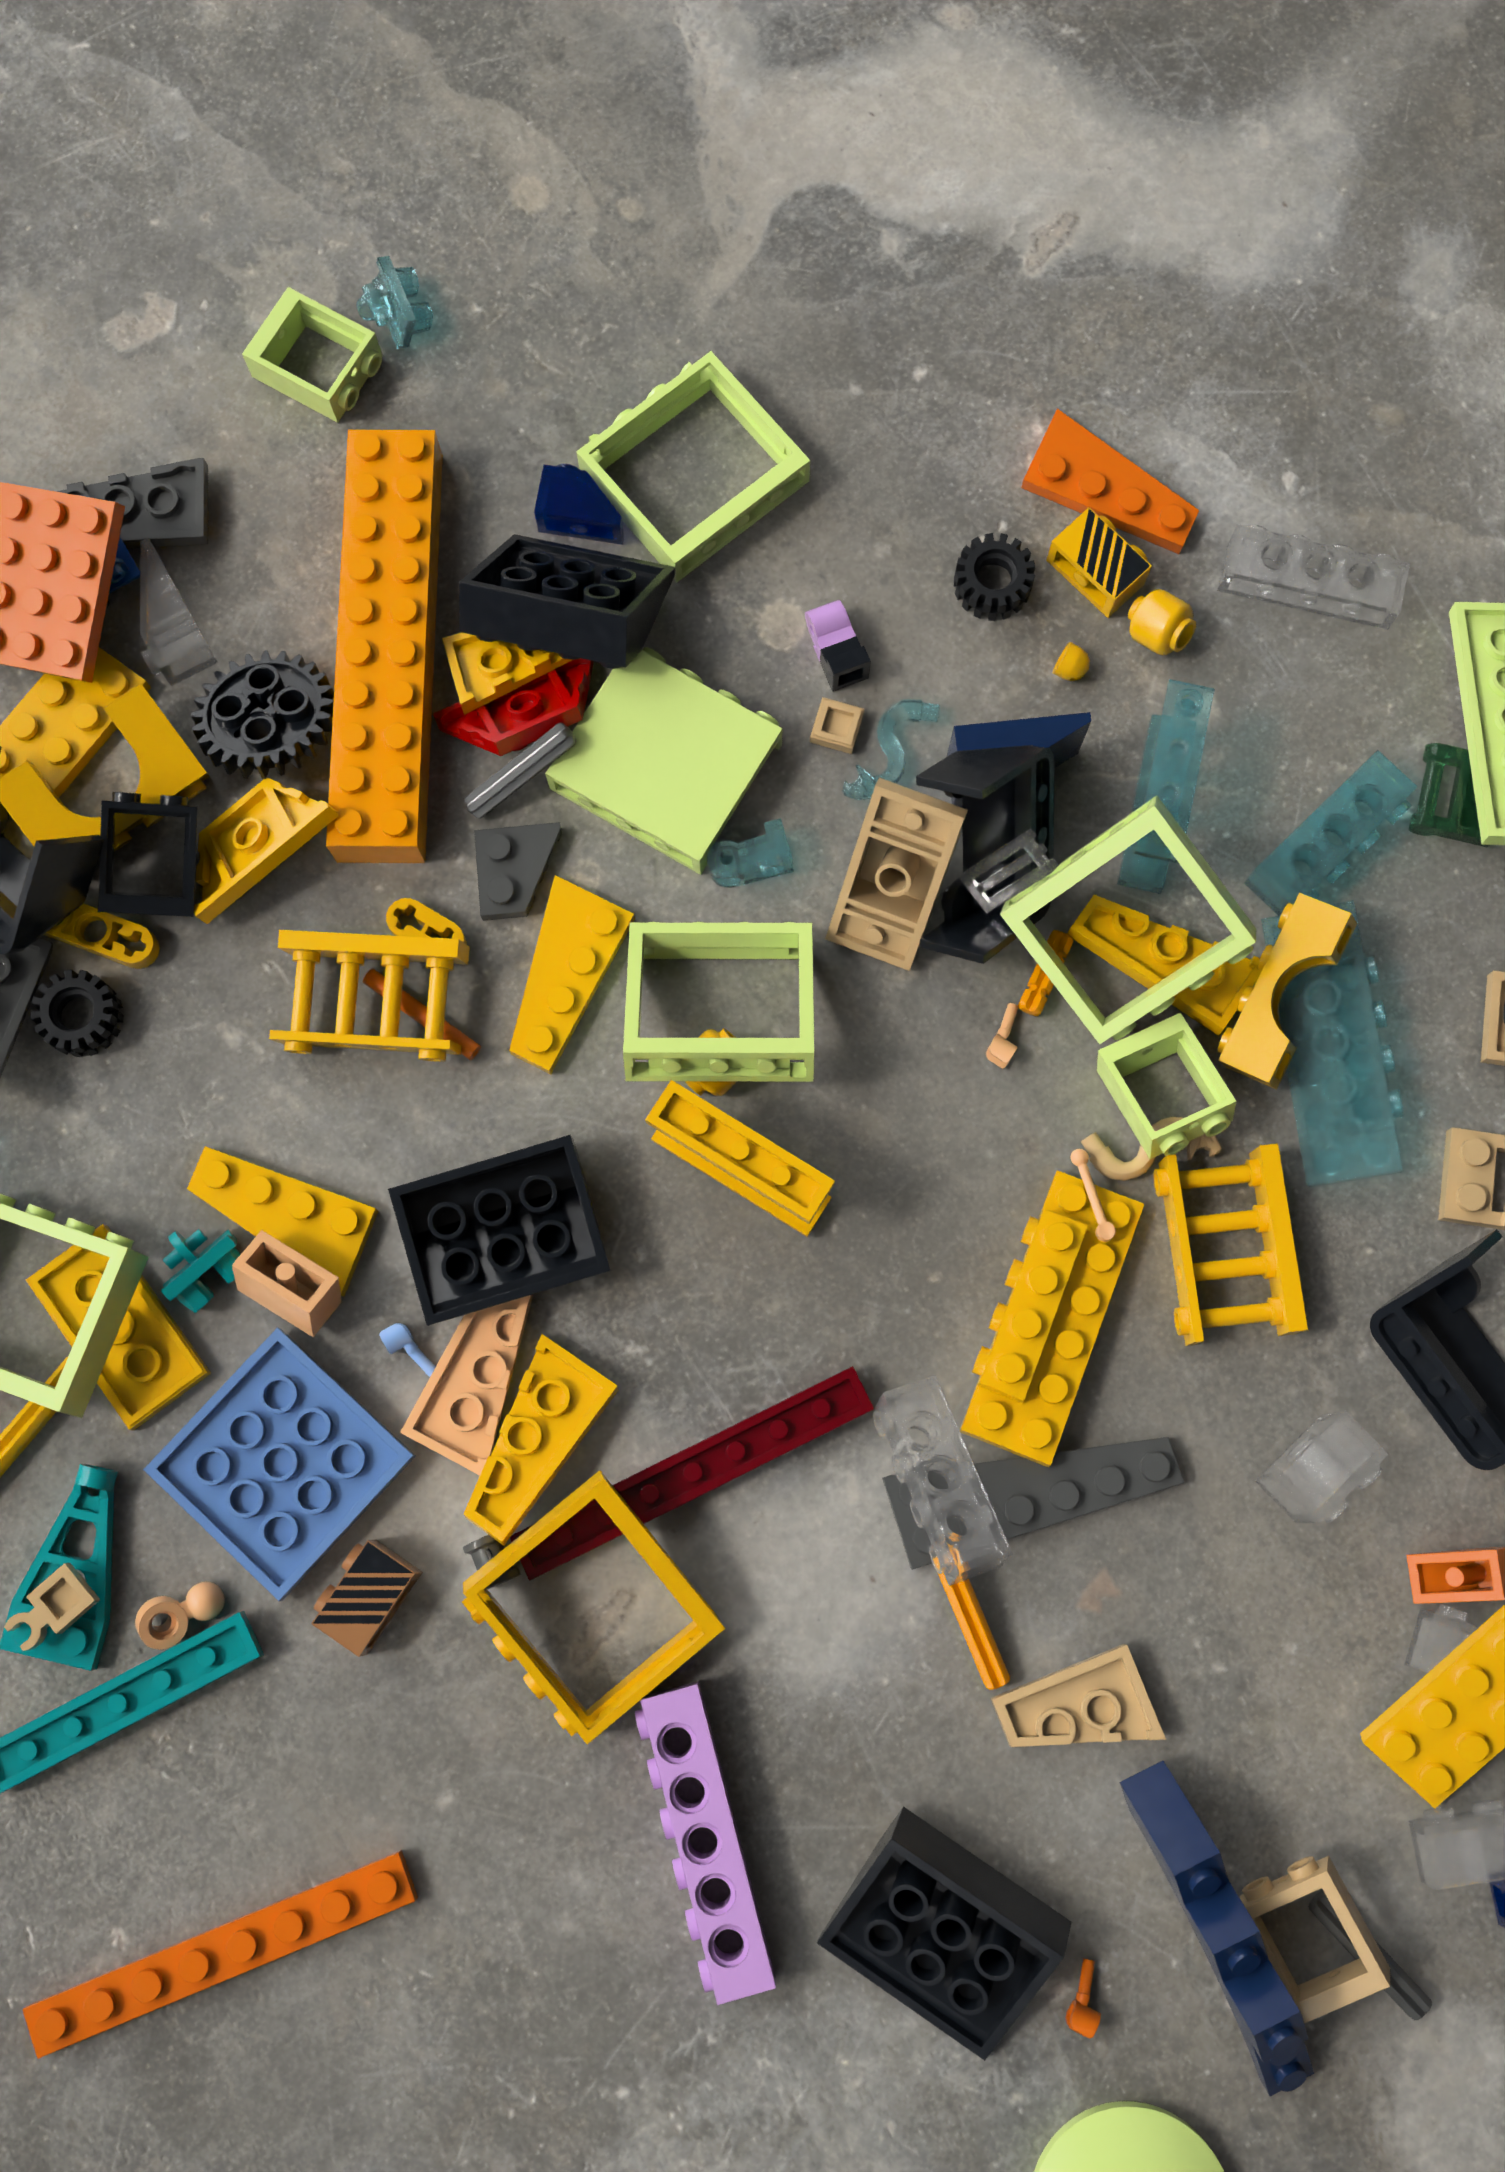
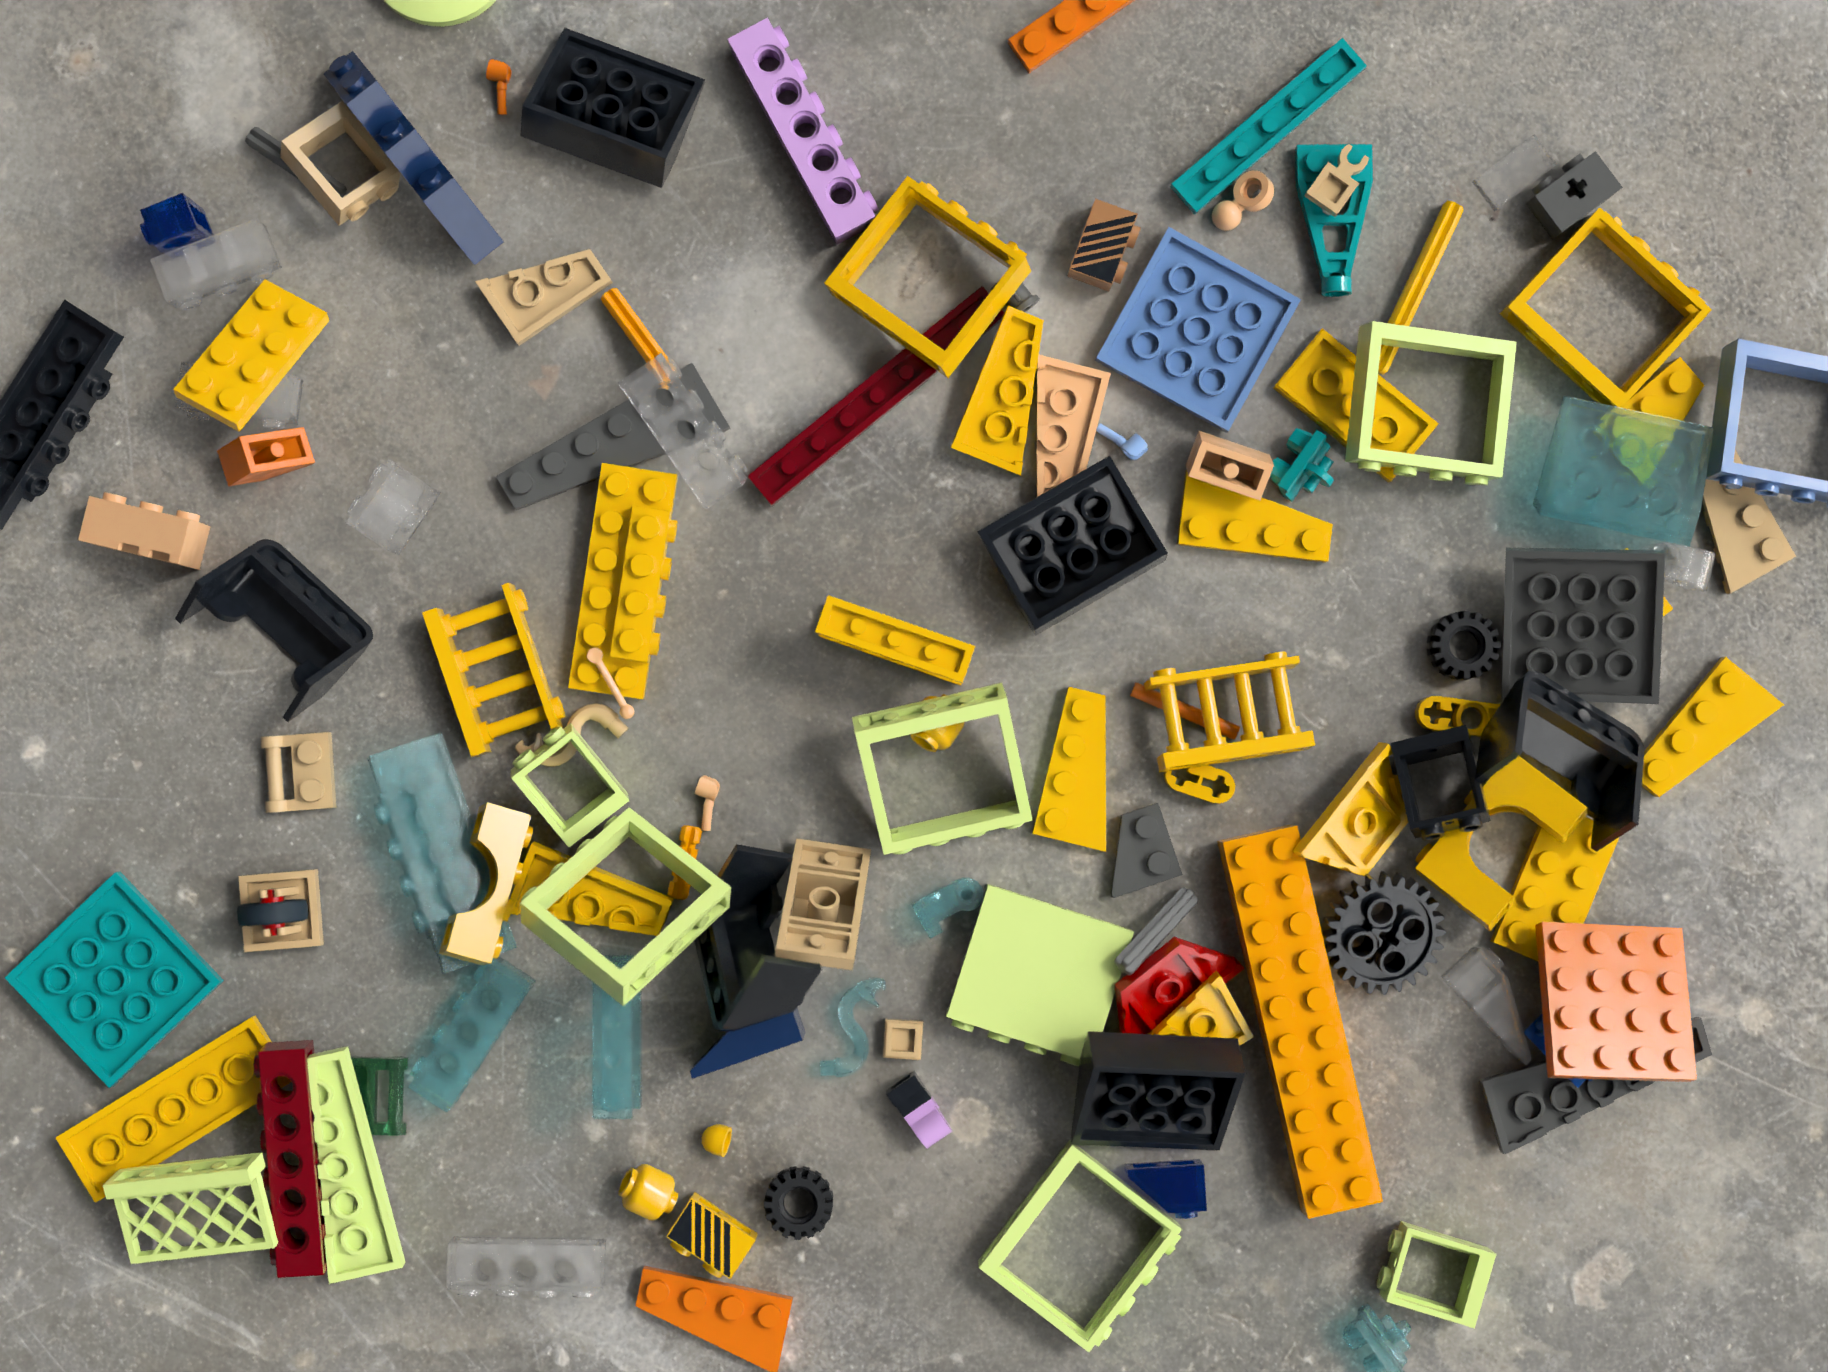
camera: 160 degrees right, 10 degrees up
(1034, 853) = (705, 933): clear tile -> none

